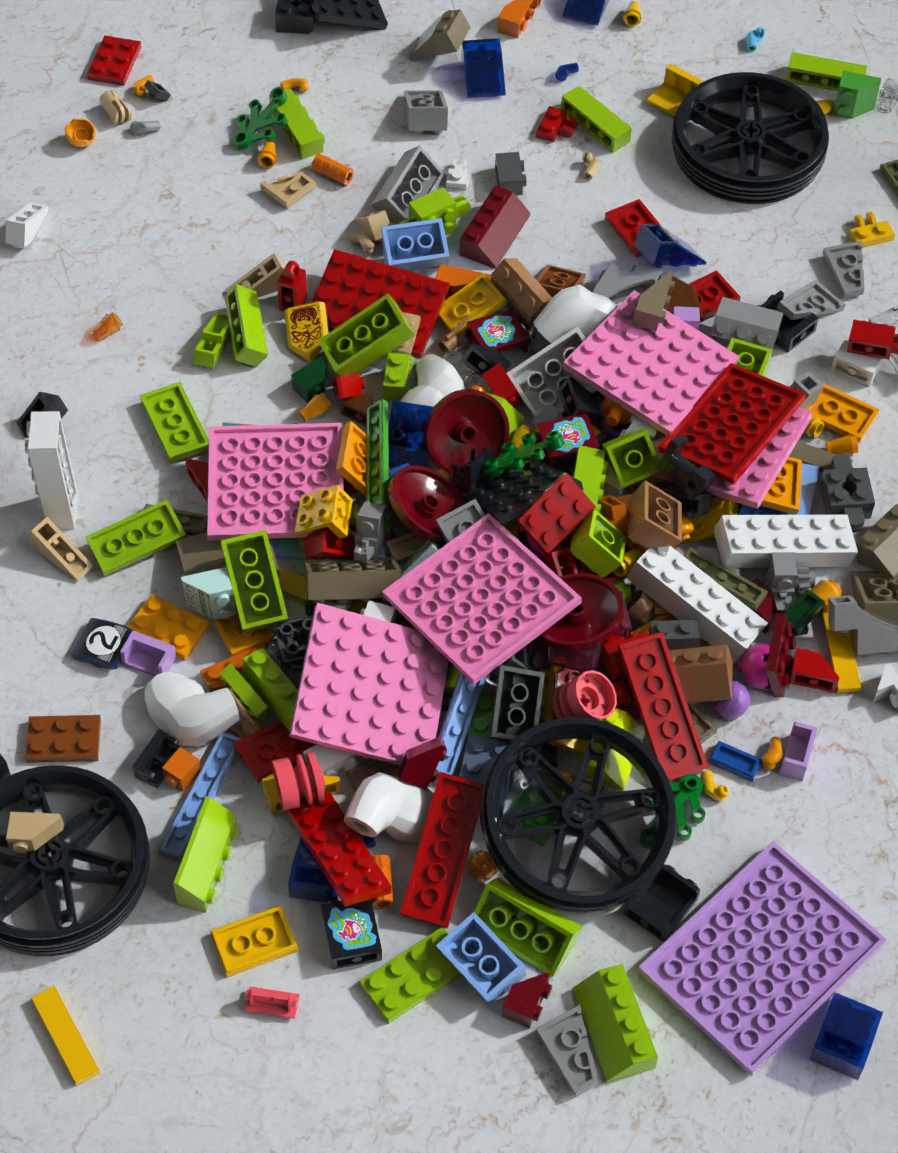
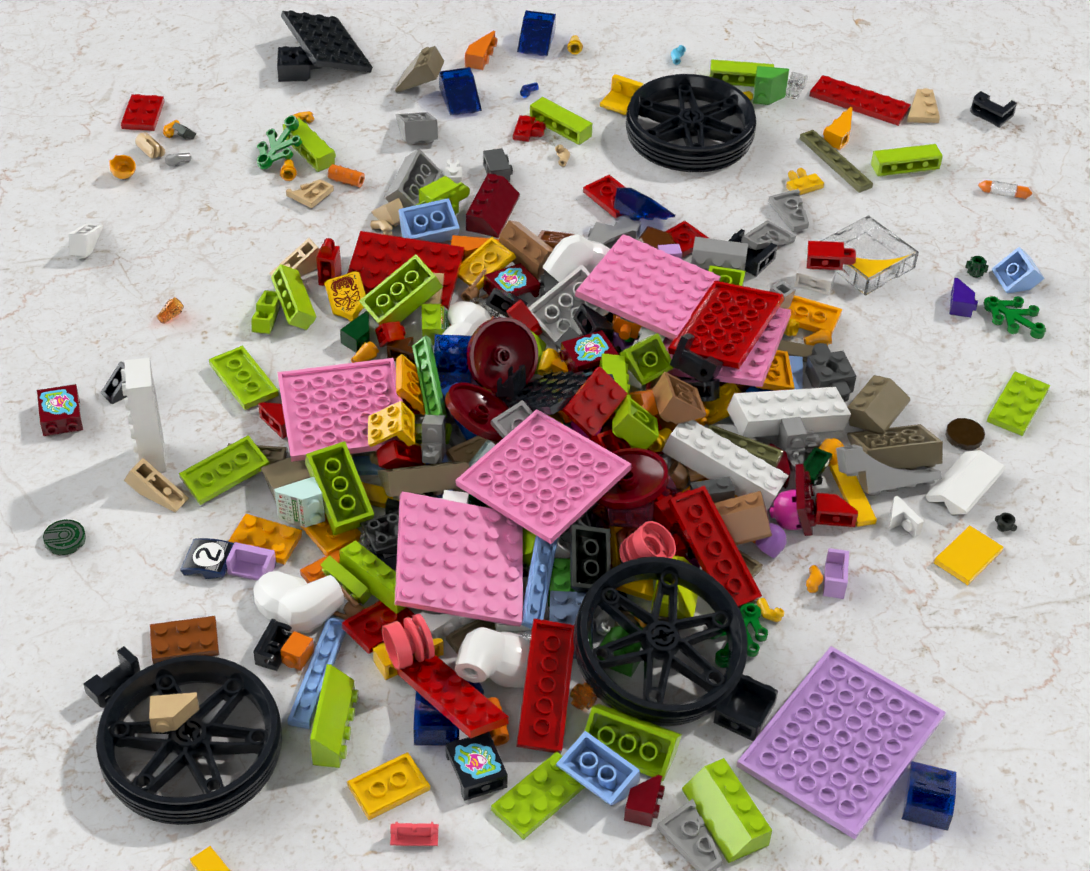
camera: 10 degrees left, 10 degrees down
(421, 763) = (515, 614): dark red slope -> none
(496, 466) = (551, 369): green plant -> none
(651, 303) = (643, 240): dark tan slope -> none
(735, 761) = (783, 589): blue tile -> none

